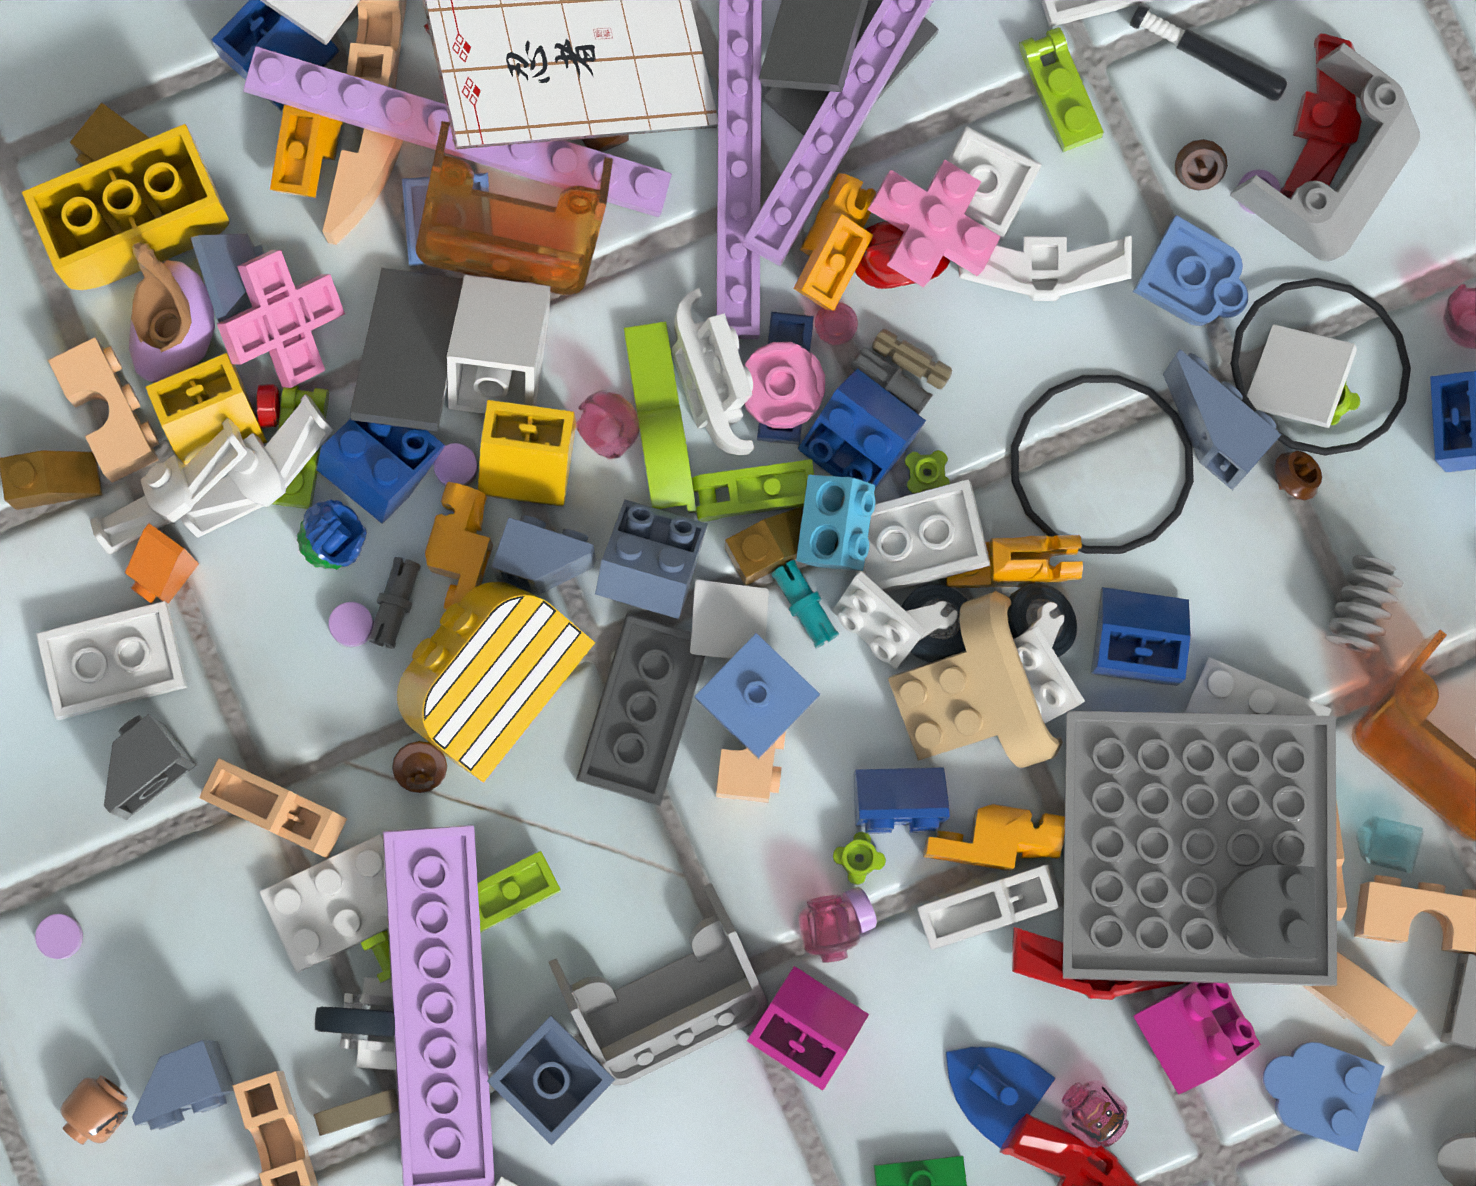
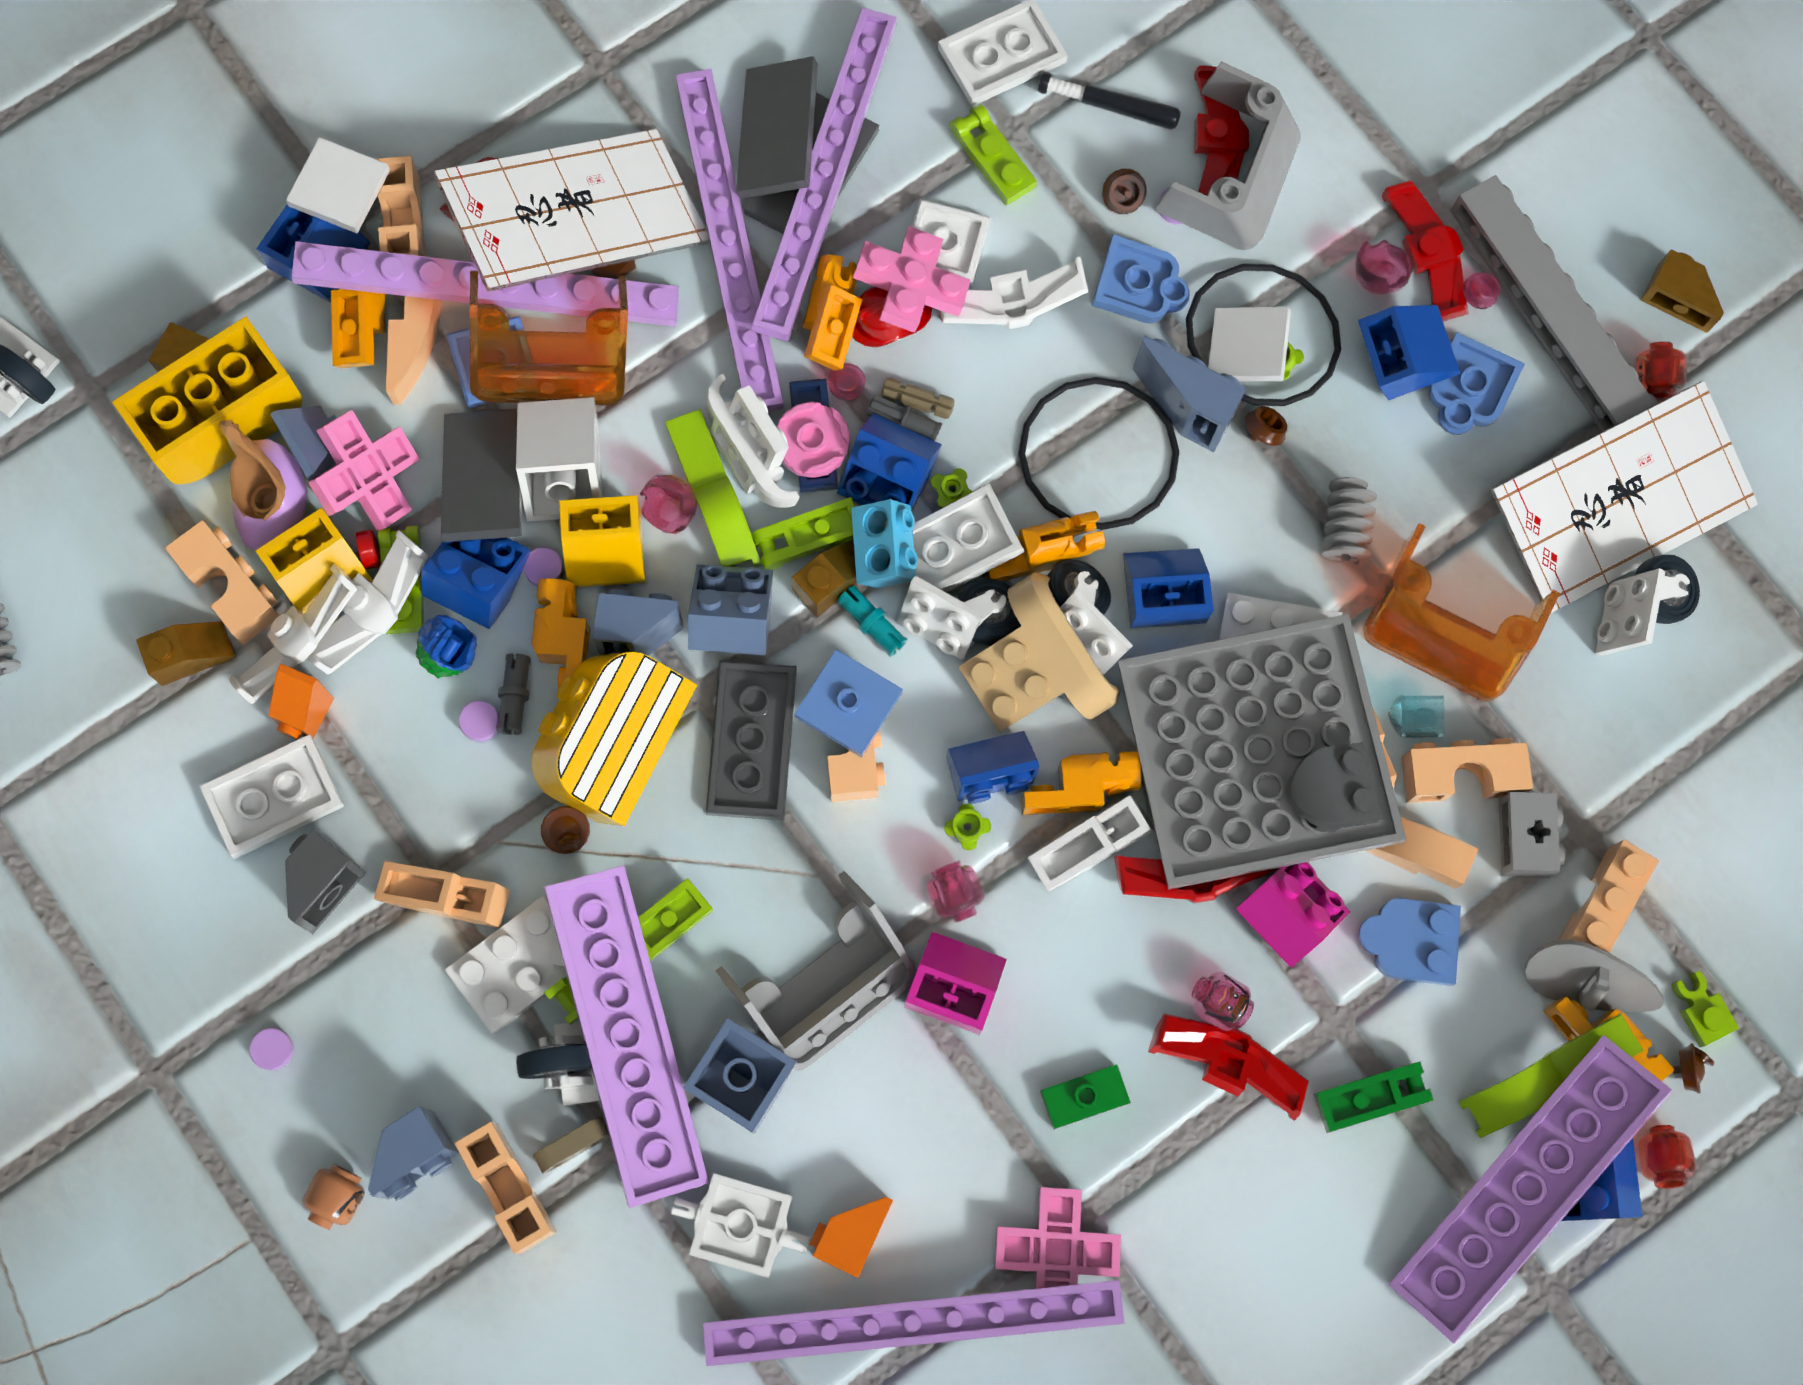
camera: 15 degrees left, 5 degrees down
(726, 617) = (806, 646): white sticker -> none
(862, 907) = (981, 868): lavender tile -> none
(995, 1088) = (1131, 1000): blue shield -> none

